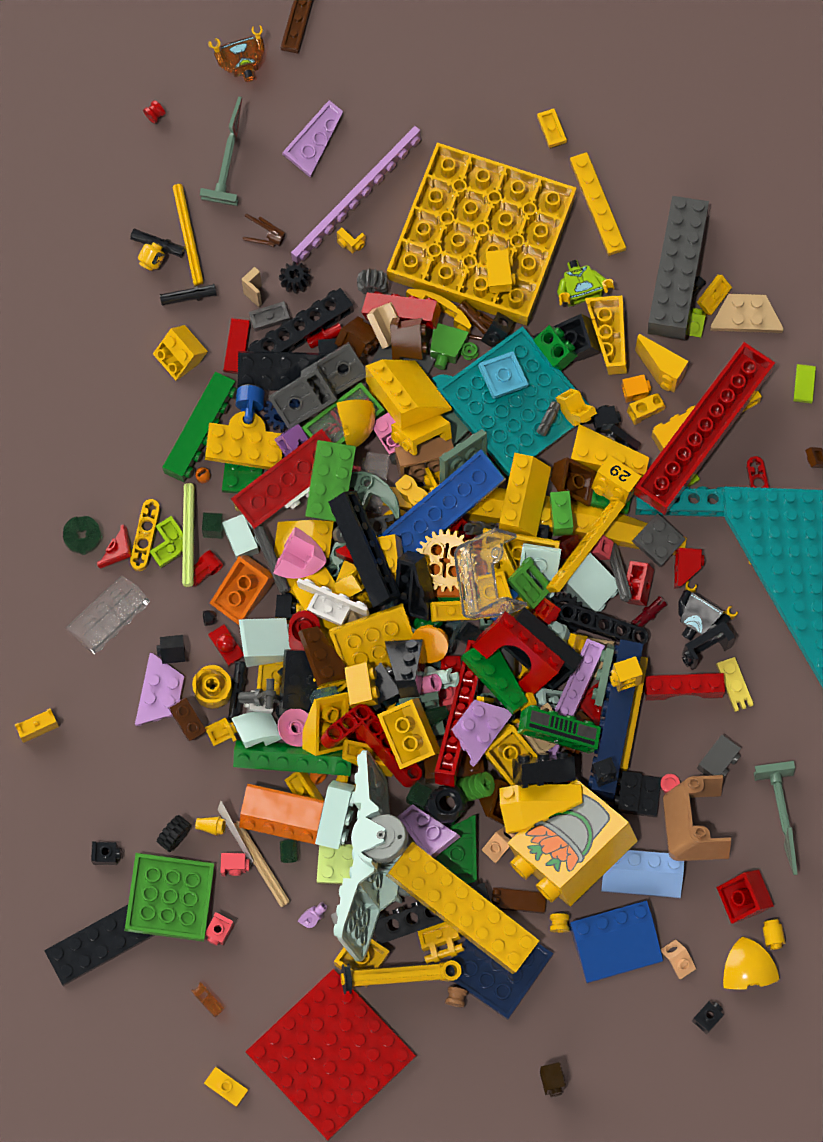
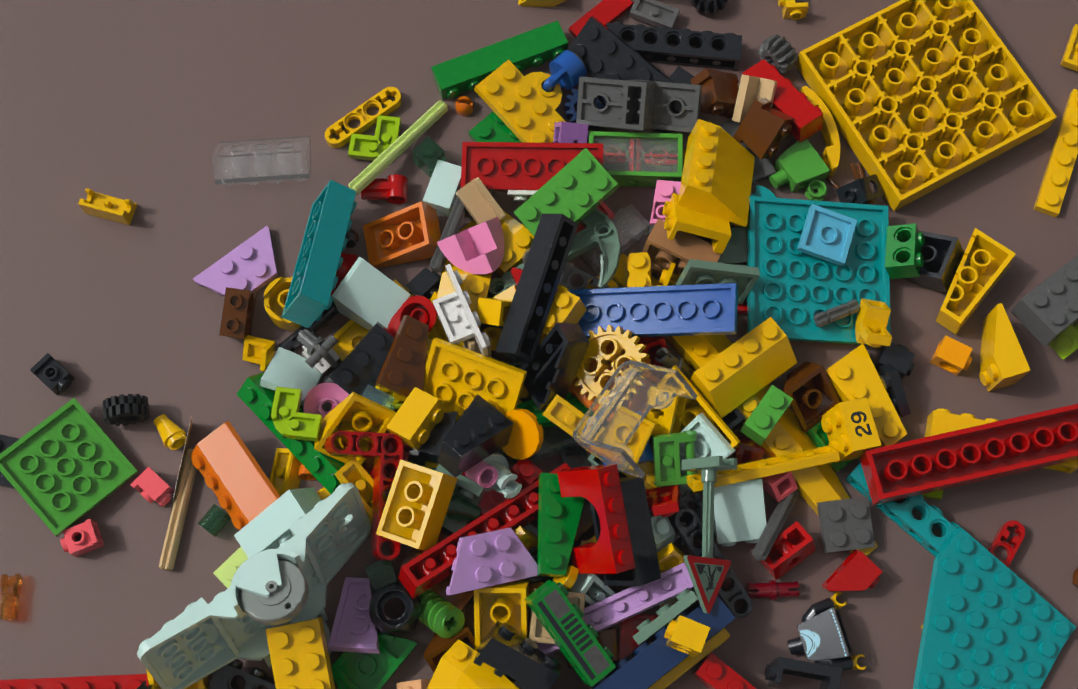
camera: 40 degrees right, 0 degrees up
(85, 544) = (308, 83): clear green plate -> none
(117, 549) = (327, 110): red tile -> none
(171, 649) = (285, 238): black brick -> none
(209, 639) = (320, 255): none -> teal brick
(275, 526) = (479, 201): none -> tan panel
(285, 752) = (289, 420): none -> lime plate
(312, 915) = (176, 602): lavender piece -> none
(328, 333) = (692, 68): red axle -> none
(357, 420) = (644, 162): yellow brick -> none
(473, 316) = (847, 157): reddish brown pin -> none
(498, 271) = (909, 133): yellow brick -> none
(581, 284) = (982, 211): lime torso -> none
(603, 630) = (706, 571): none -> sand green piece
(645, 408) = (946, 383): yellow leg -> none

